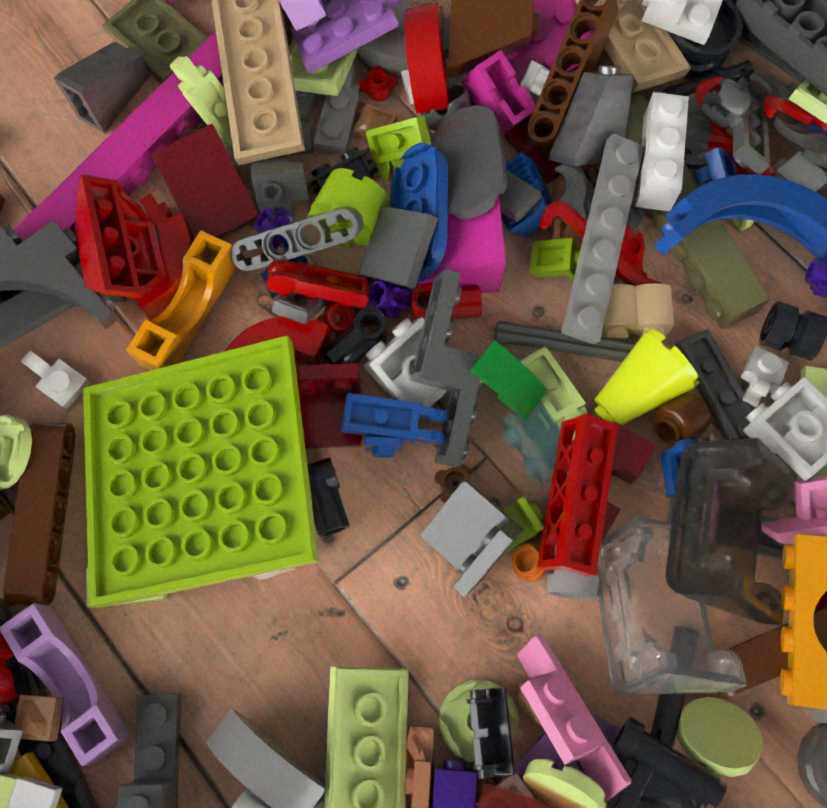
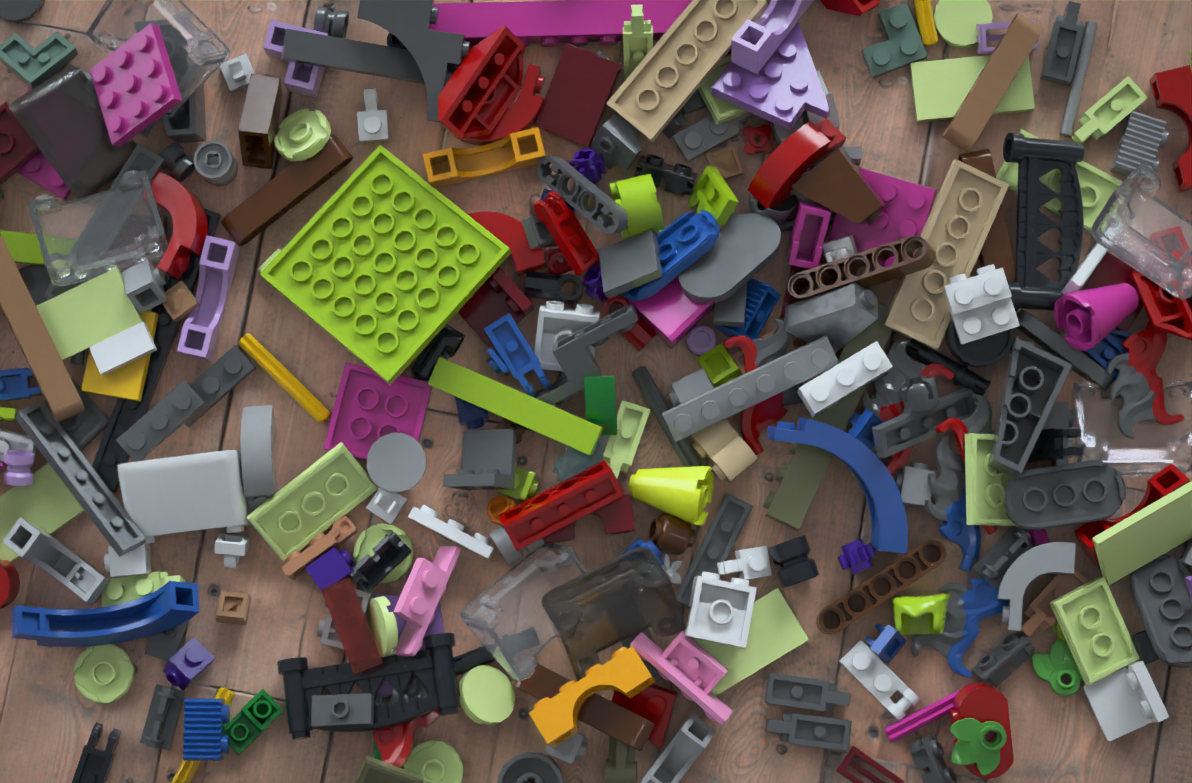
camera: 55 degrees right, 10 degrees up
(215, 672) = (284, 378): none -> yellow axle
(336, 608) = (373, 408): none -> dark pink plate
(399, 626) = (396, 462): none -> light grey tile
(403, 507) = (470, 414): none -> clear blue bracket
(430, 673) = (386, 505): none -> white tile
(442, 459) = (515, 406): none -> lime tile
(514, 627) = (452, 531): none -> white plate
(517, 258) = (701, 340): none -> lavender tile
(554, 296) = (690, 387): none -> light grey brick

